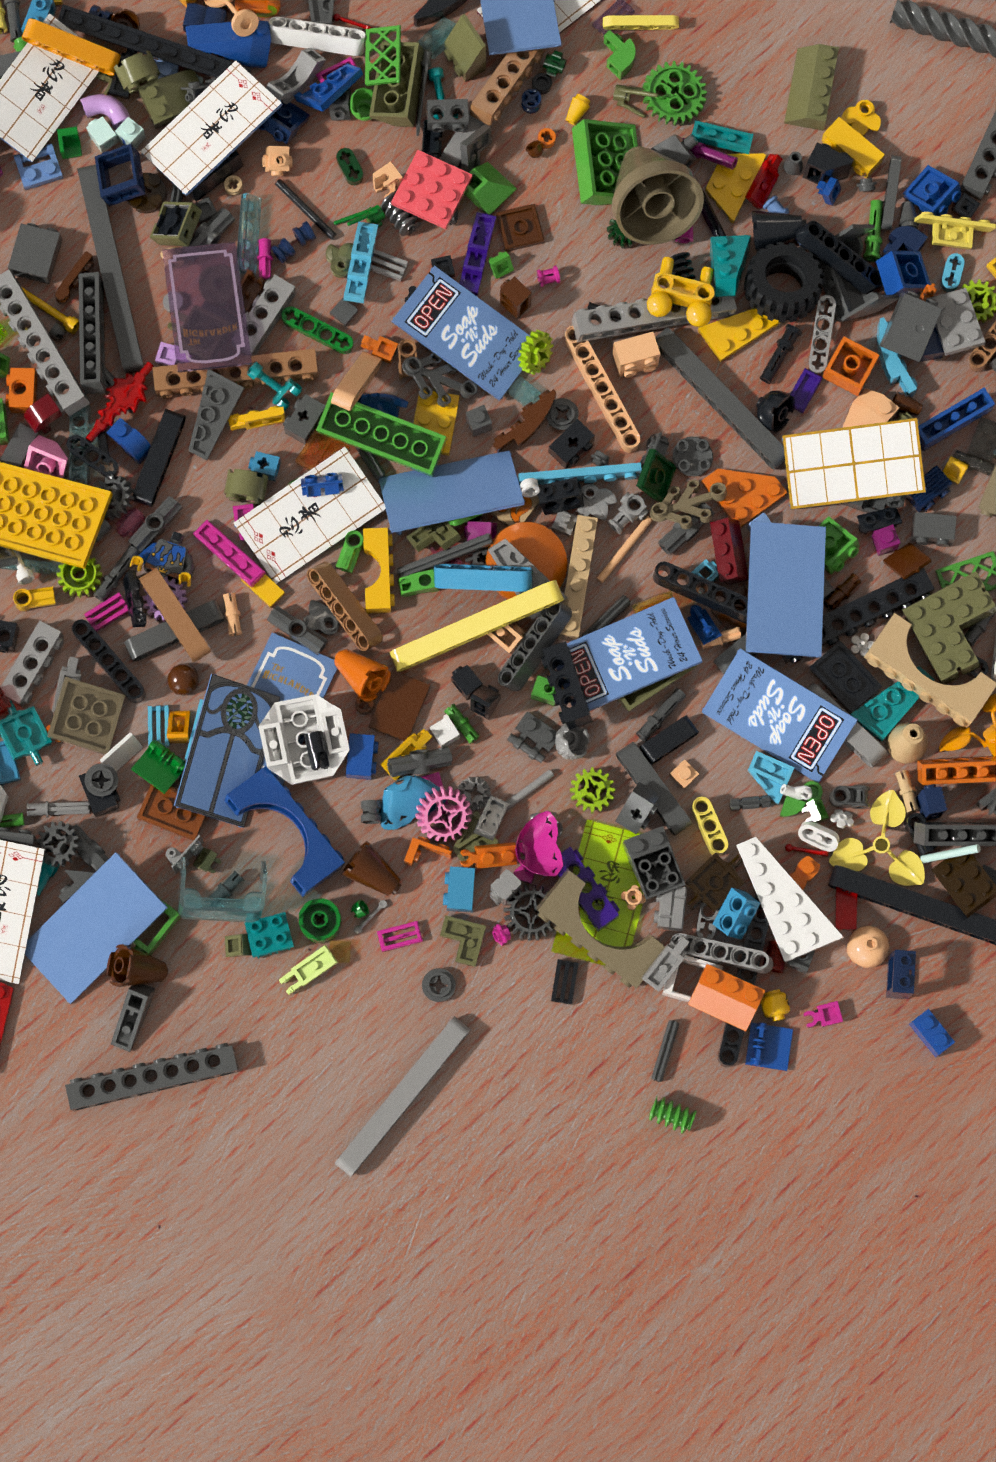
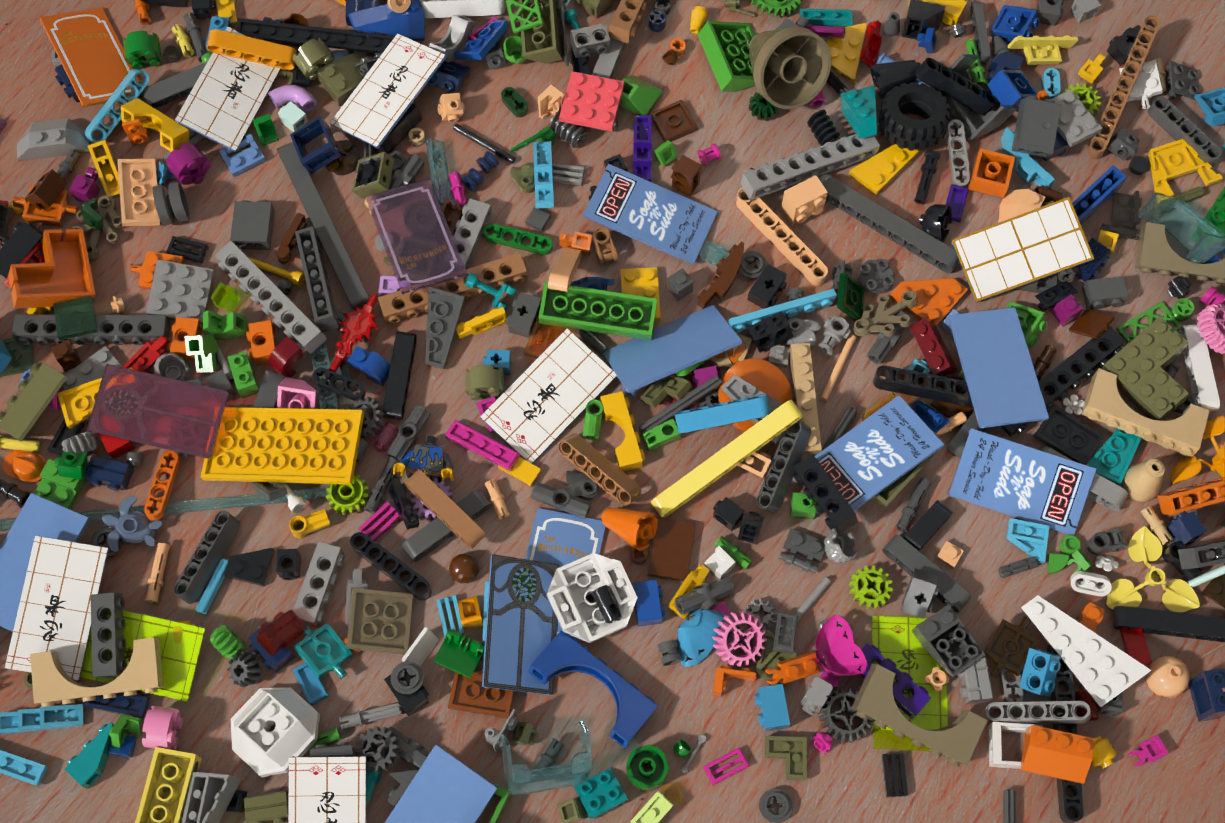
camera: 10 degrees left, 10 degrees down
(130, 133) = (317, 108): light aqua brick -> none
(312, 484) = (547, 366): blue hinge -> none
(372, 871) = (684, 708): reddish brown cone -> none
(436, 379) = (614, 249): dark grey plant -> none
(472, 147) = (619, 60): dark grey plate -> none
(529, 487) = (742, 328): white bush -> none
(535, 352) = (715, 216): lime gear -> none
(666, 963) = (990, 734): light grey hinge -> none
(683, 293) = (832, 138): yellow piece -> none
(709, 816) = (987, 586): light yellow beam -> none
(769, 1046) = (1106, 794): blue hinge -> none
(789, 847) = (1065, 600): red hinge -> none
(799, 792) = (1060, 547): white arm -> none
(965, 206) = (1045, 29): black tile -> none

